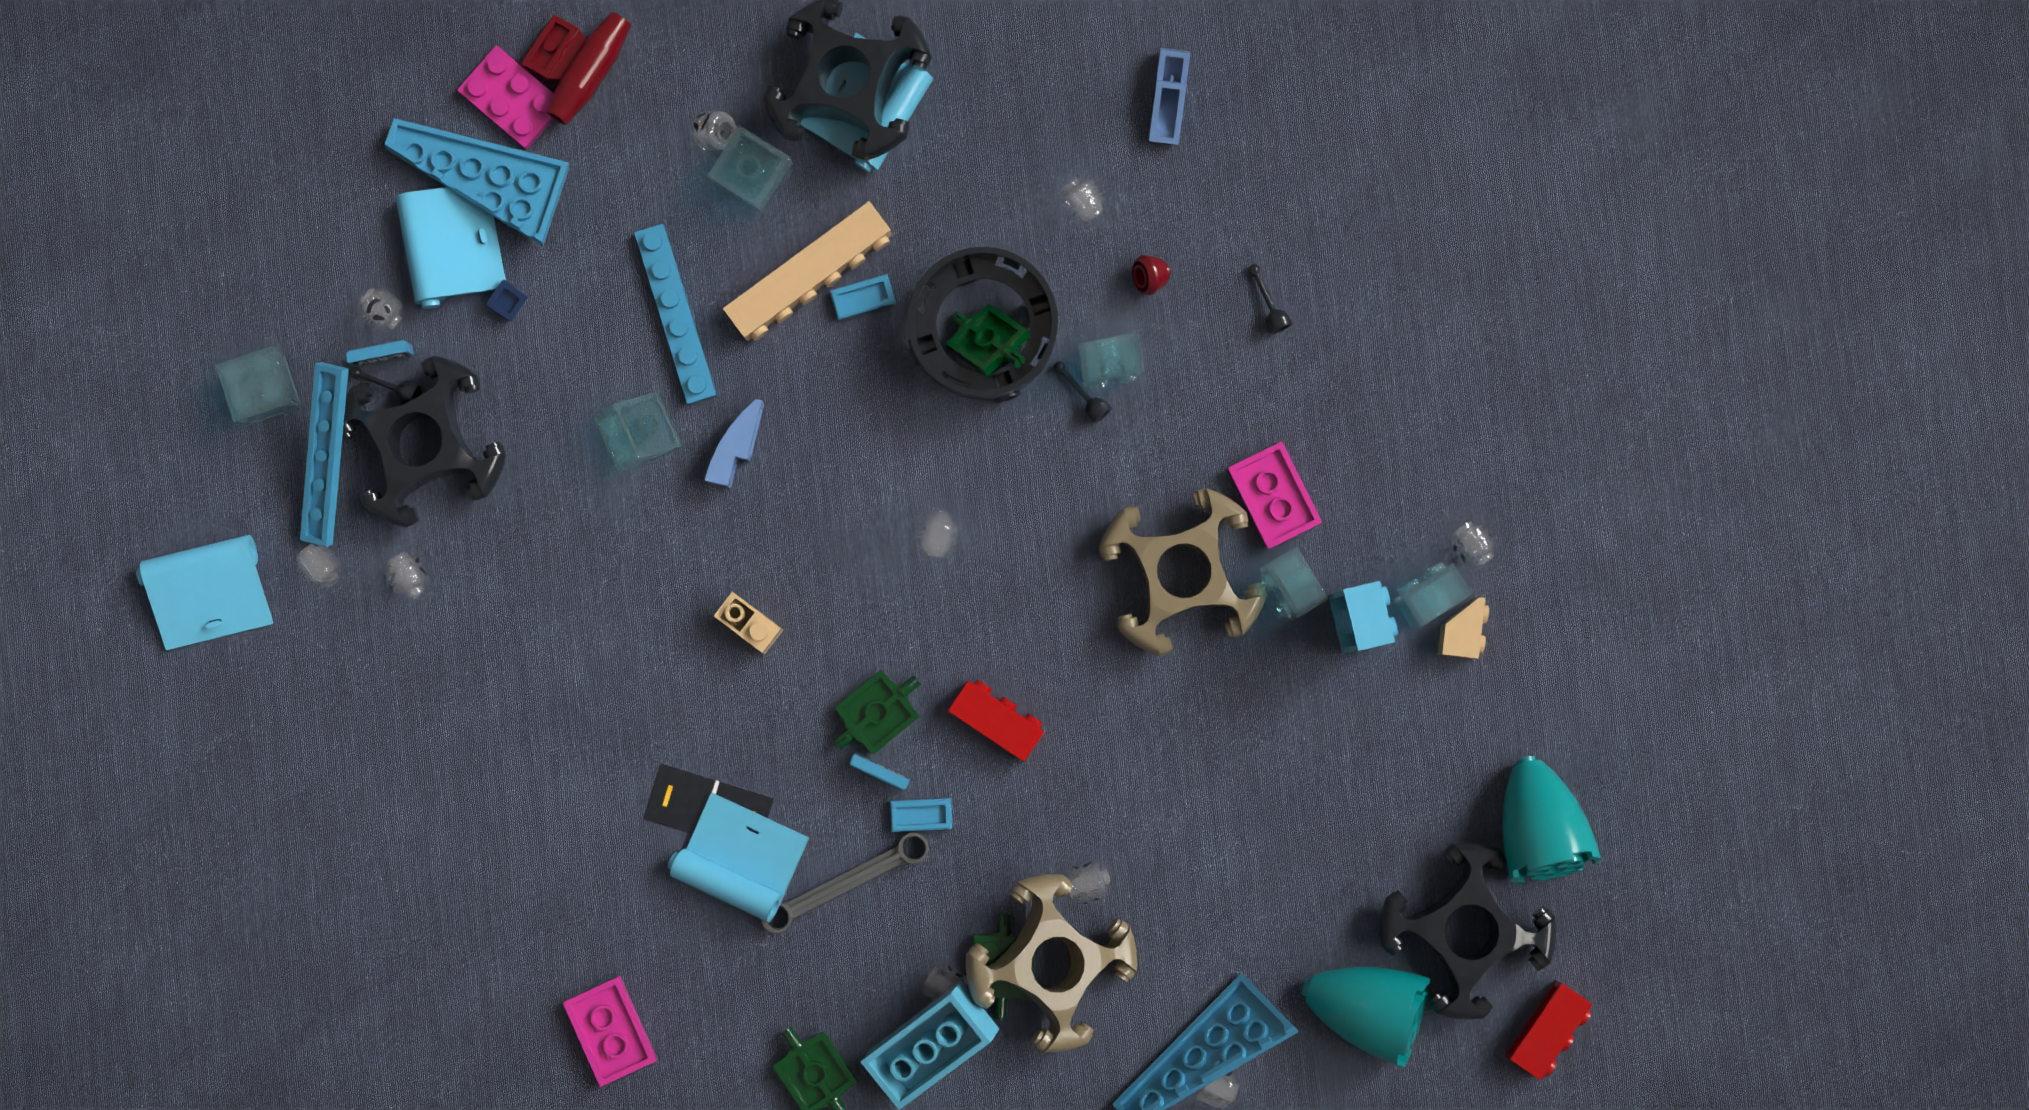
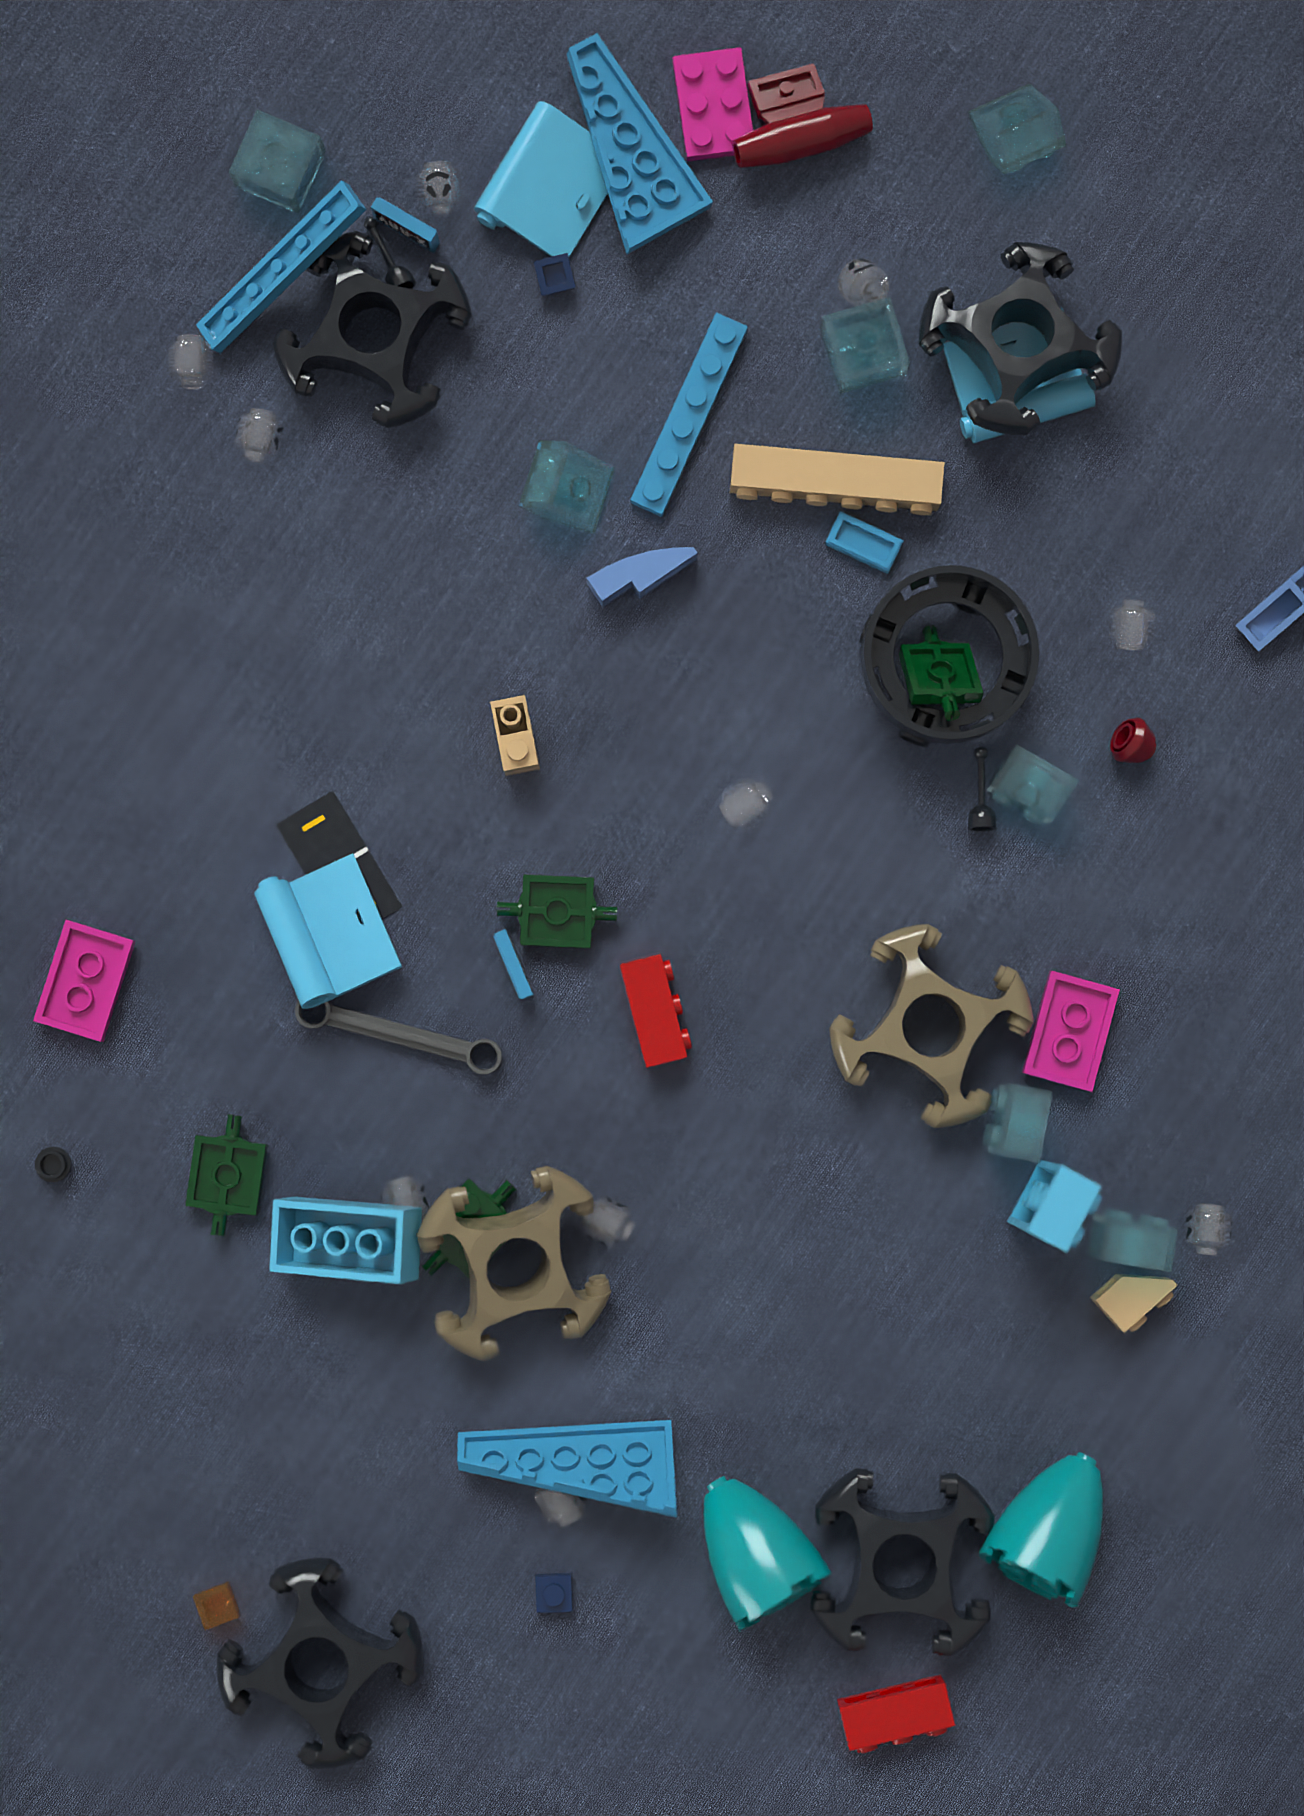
camera: 45 degrees right, 0 degrees up
(205, 586) = (80, 292): medium azure door -> none
(921, 814) = (516, 1034): dark azure tile -> none
(1277, 319) = (1210, 880): black hinge -> none

